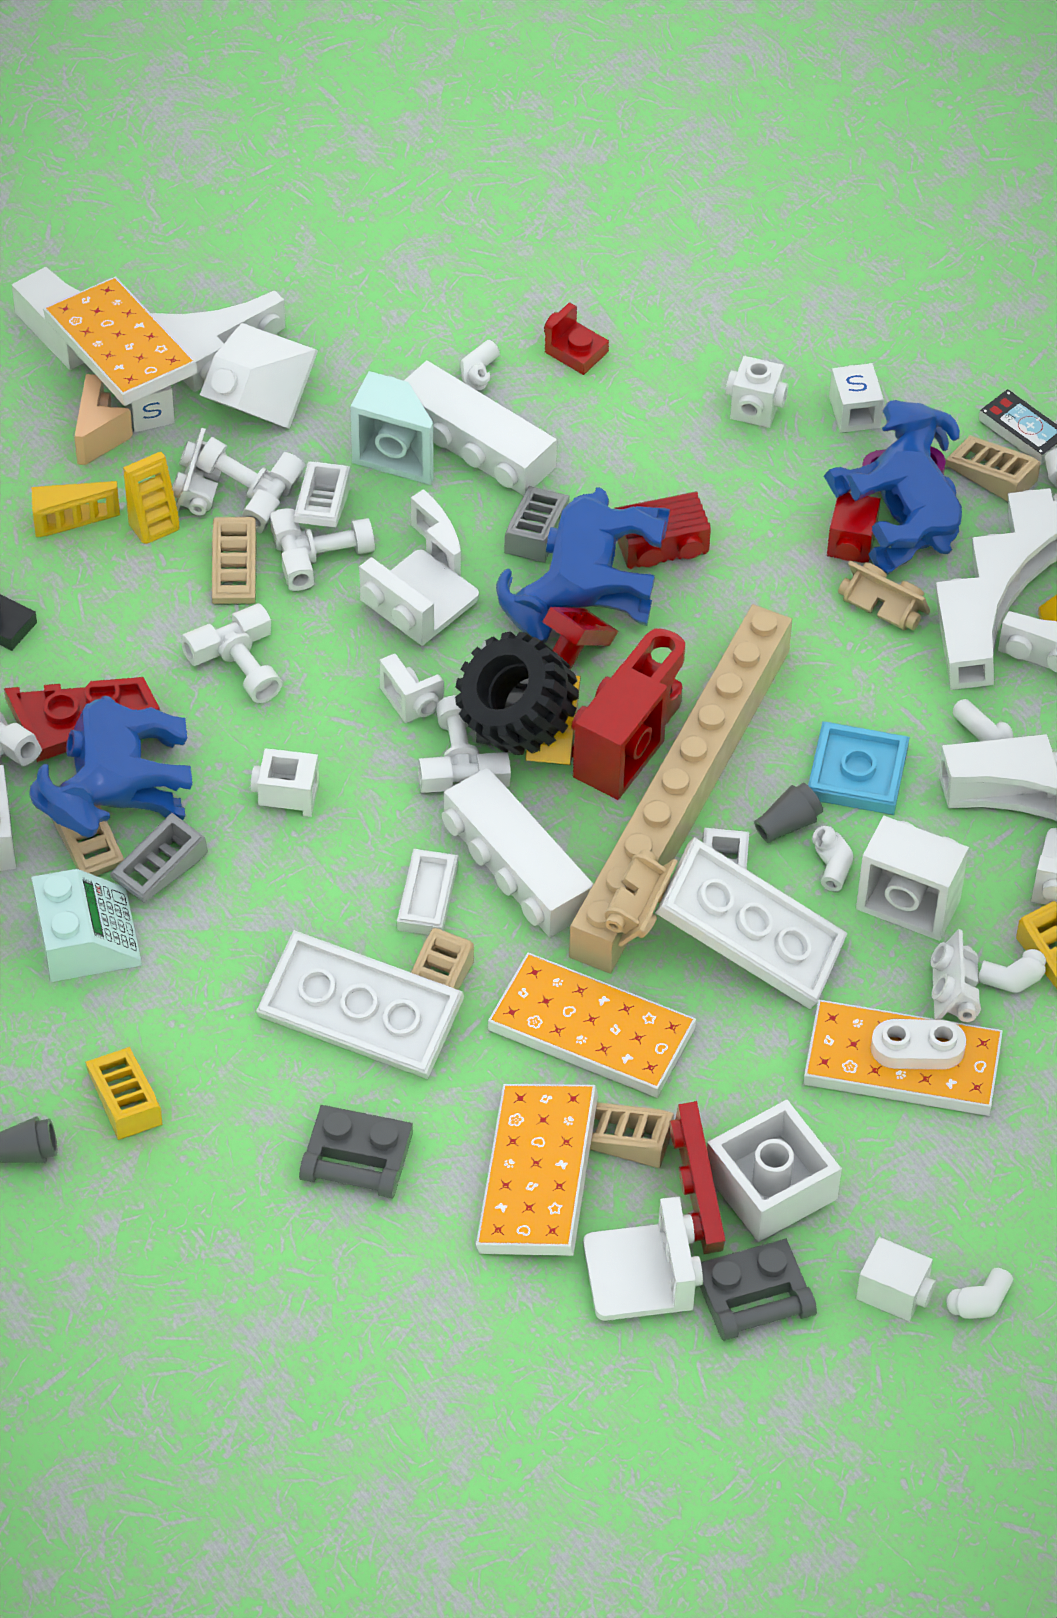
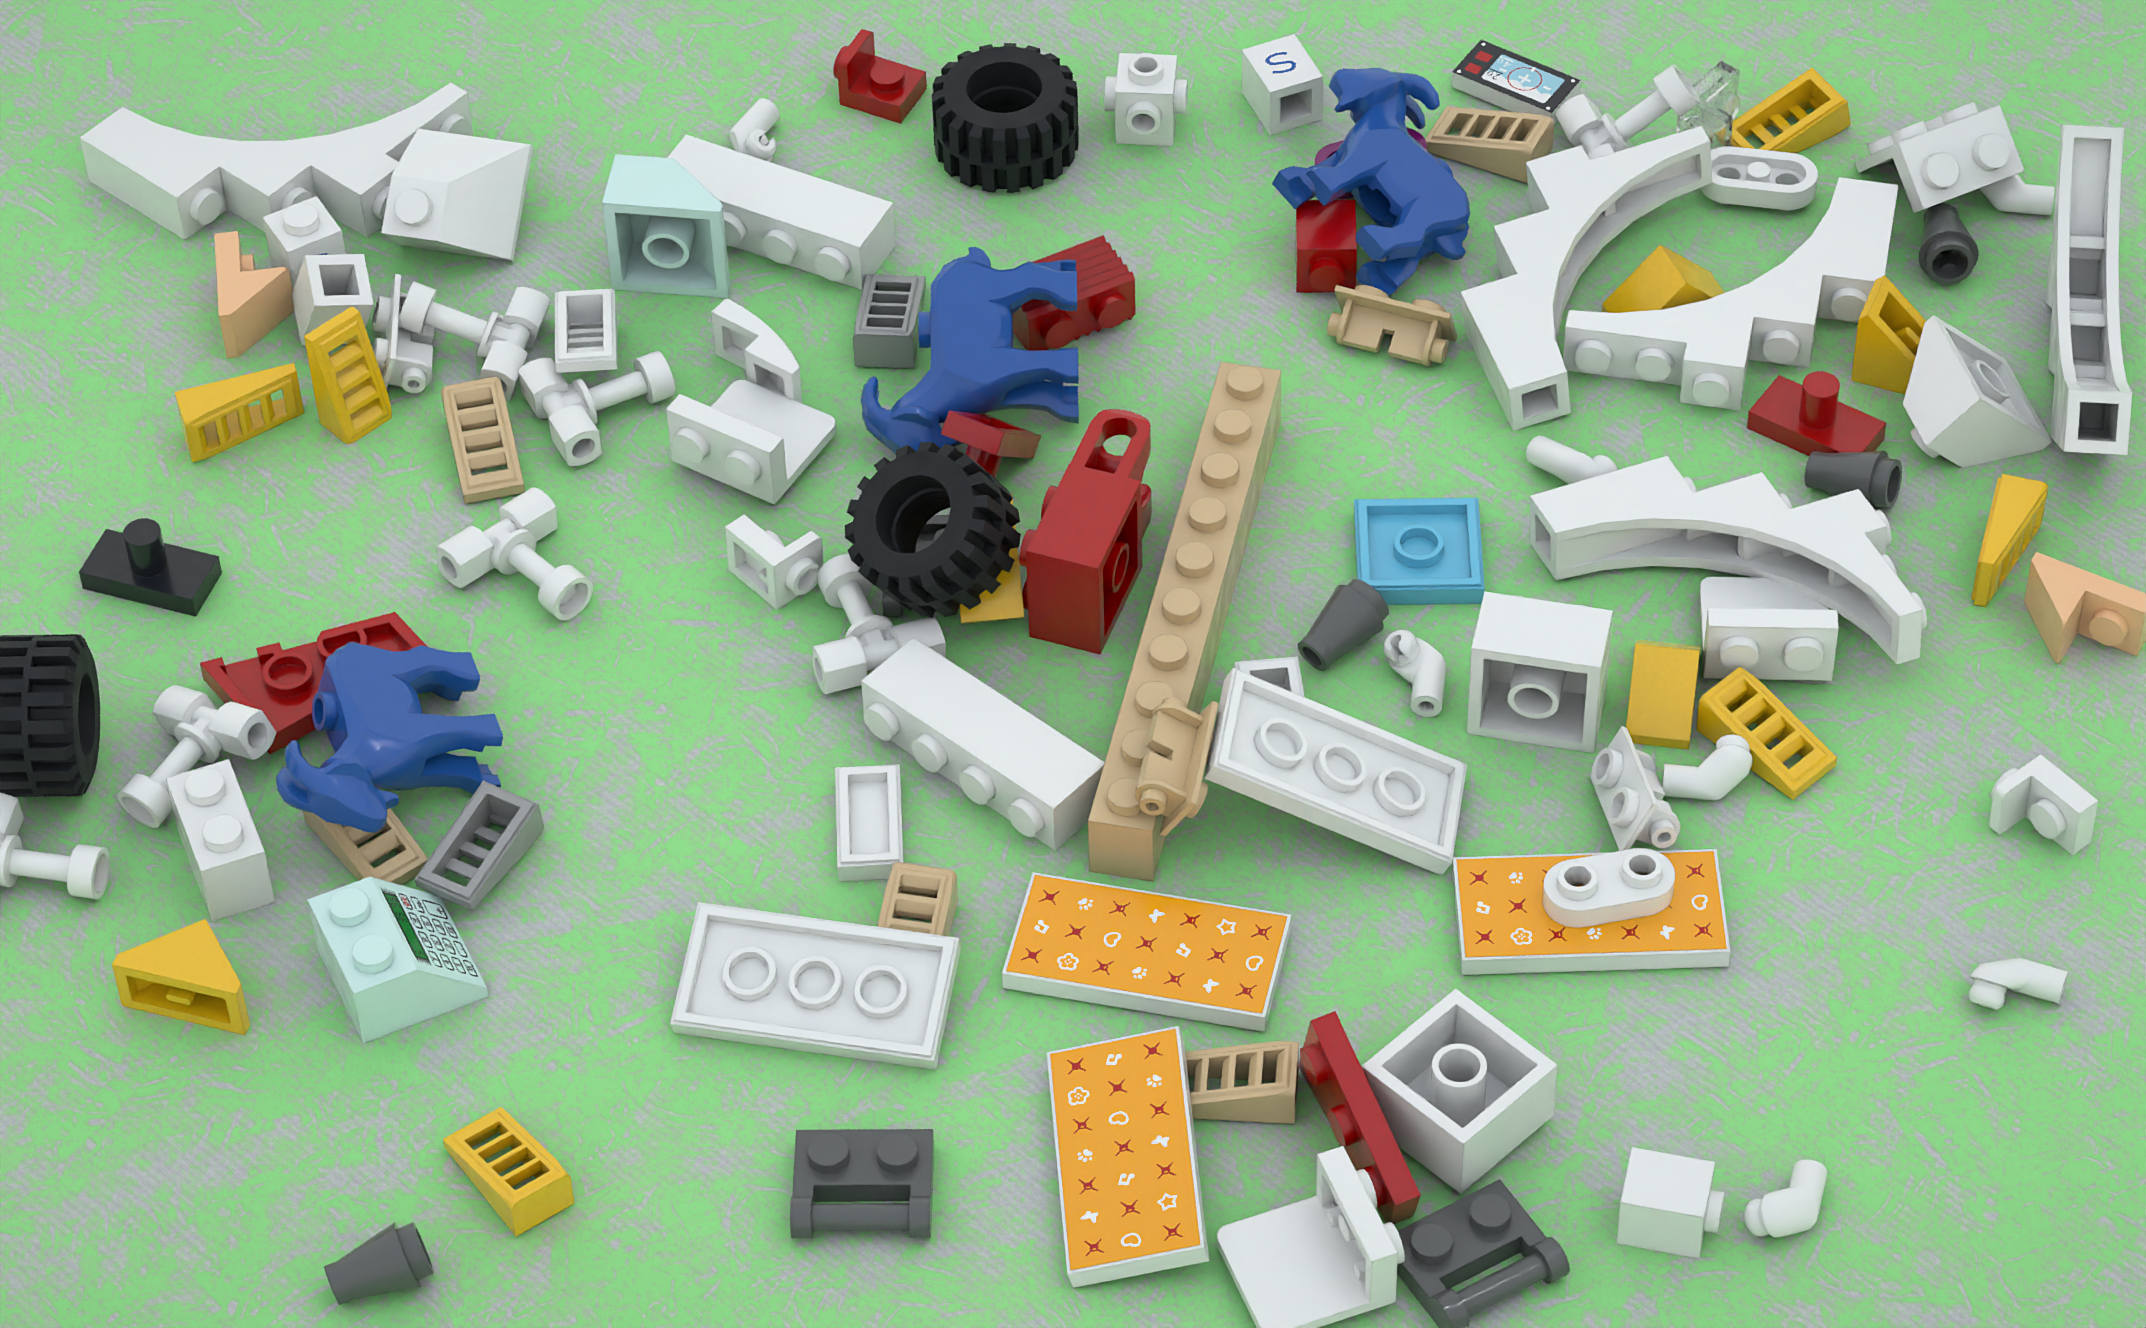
camera: 10 degrees left, 5 degrees down
(120, 341) = (254, 179): light orange tile -> none
(155, 431) = (329, 287): none -> white brick
(287, 780) = (633, 709): white brick -> none
(653, 387) = (1005, 117): none -> black tyre
(998, 906) = (1662, 693): none -> yellow slope

